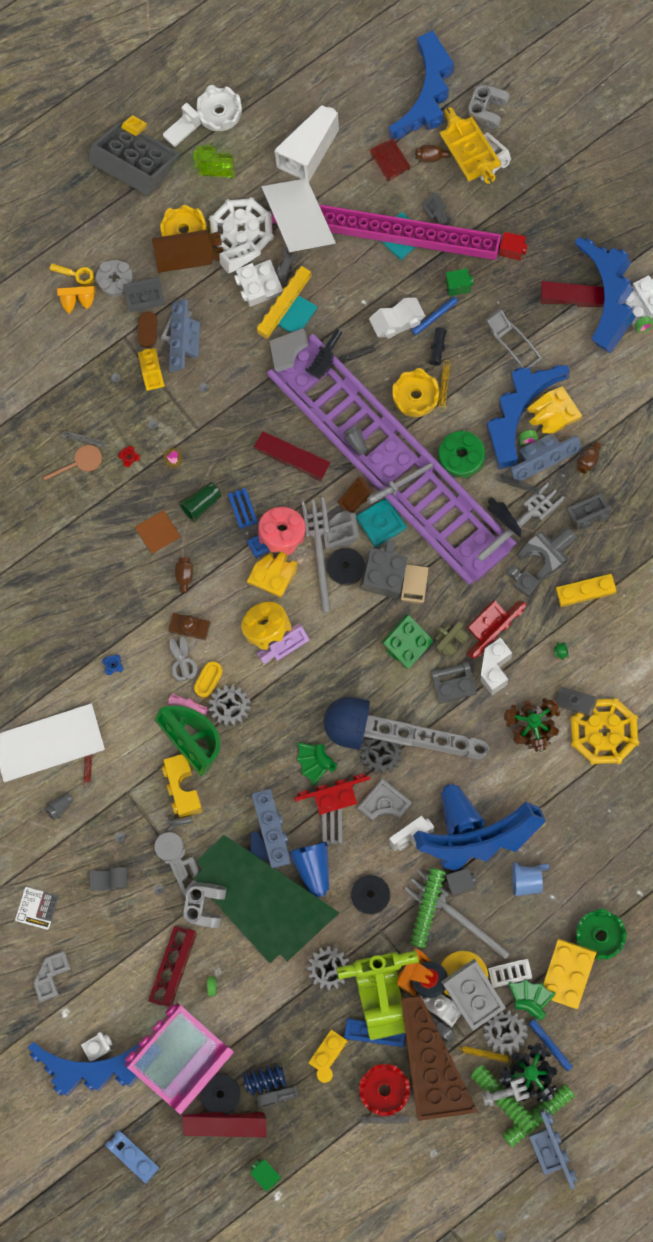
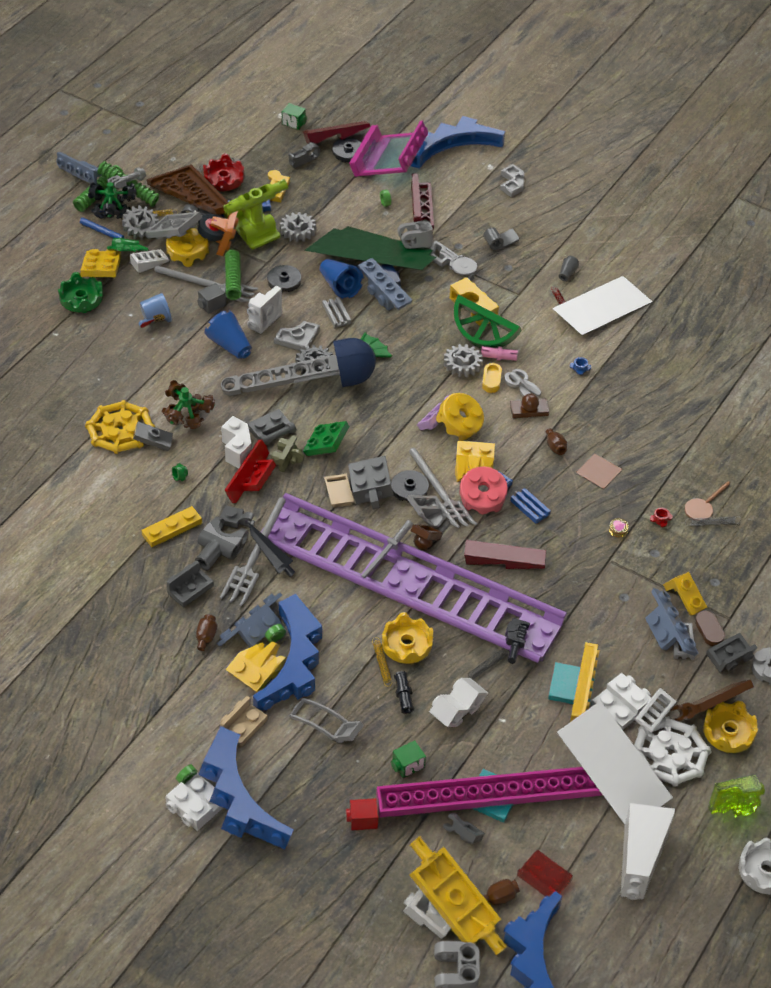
camera: 150 degrees right, 25 degrees down
(36, 908) = (548, 214): sticker -> none
(97, 1046) = (454, 152): white bracket -> none
(132, 1157) = (396, 108): medium blue plate -> none
(200, 501) = (573, 492): dark green plant -> none
(264, 1079) = (318, 158): dark blue piece -> none
(286, 348) = (558, 641): light grey tile -> none
(334, 797) = (344, 325): red bracket -> none
(356, 440) = (449, 577): dark grey cone -> none
(381, 522) = (390, 523): teal tile -> none
(434, 316) = (419, 725): blue bar -> none
(462, 466) = (333, 608): green plate -> none
(483, 843) = (182, 327): blue arch -> none
(534, 490) = (258, 590): dark grey piece -> none
(572, 294) = (282, 779): dark red slope -> none
(583, 360) = (244, 720): none -> tan bracket

